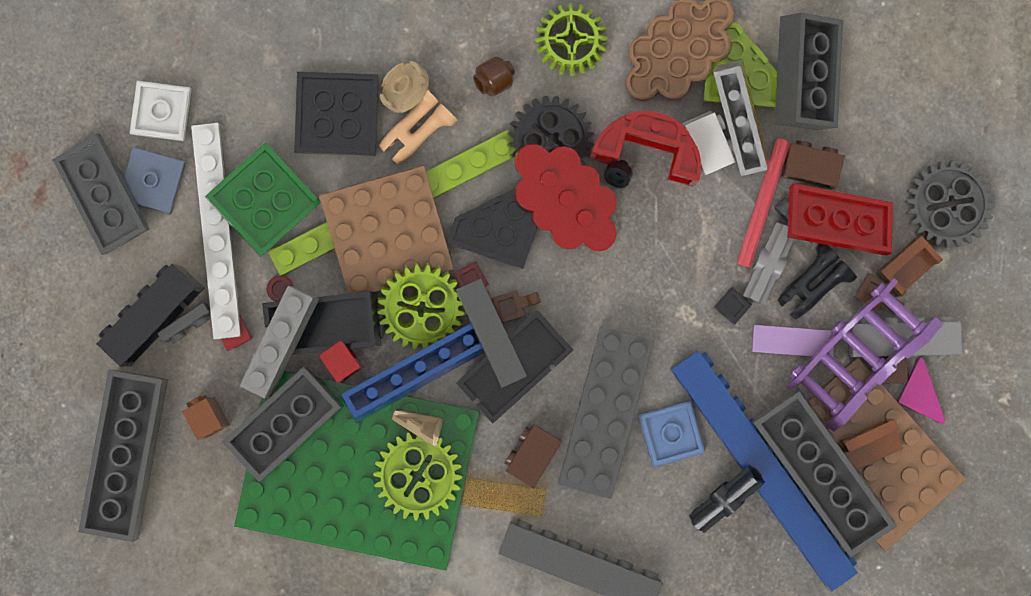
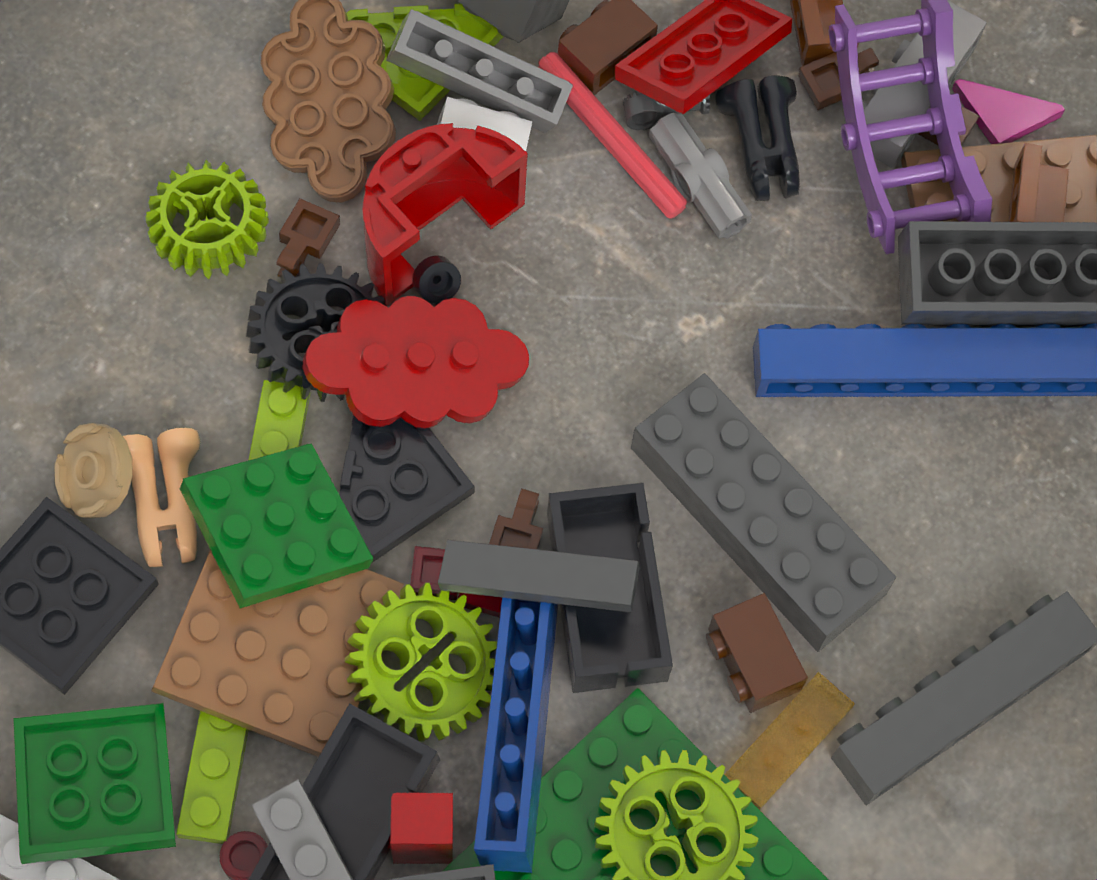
camera: 60 degrees left, 20 degrees down
(422, 425) = (606, 769): tan tile -> none
(433, 193) = (275, 524): none -> green plate
(494, 76) = (176, 347): reddish brown head -> none
(600, 93) = (304, 233): none -> reddish brown plate
(671, 433) = (850, 451): medium blue tile -> none
(726, 498) = (996, 427): black piece -> none
(732, 306) = (724, 260): black tile -> none
(789, 340) = (820, 222): lavender tile -> none

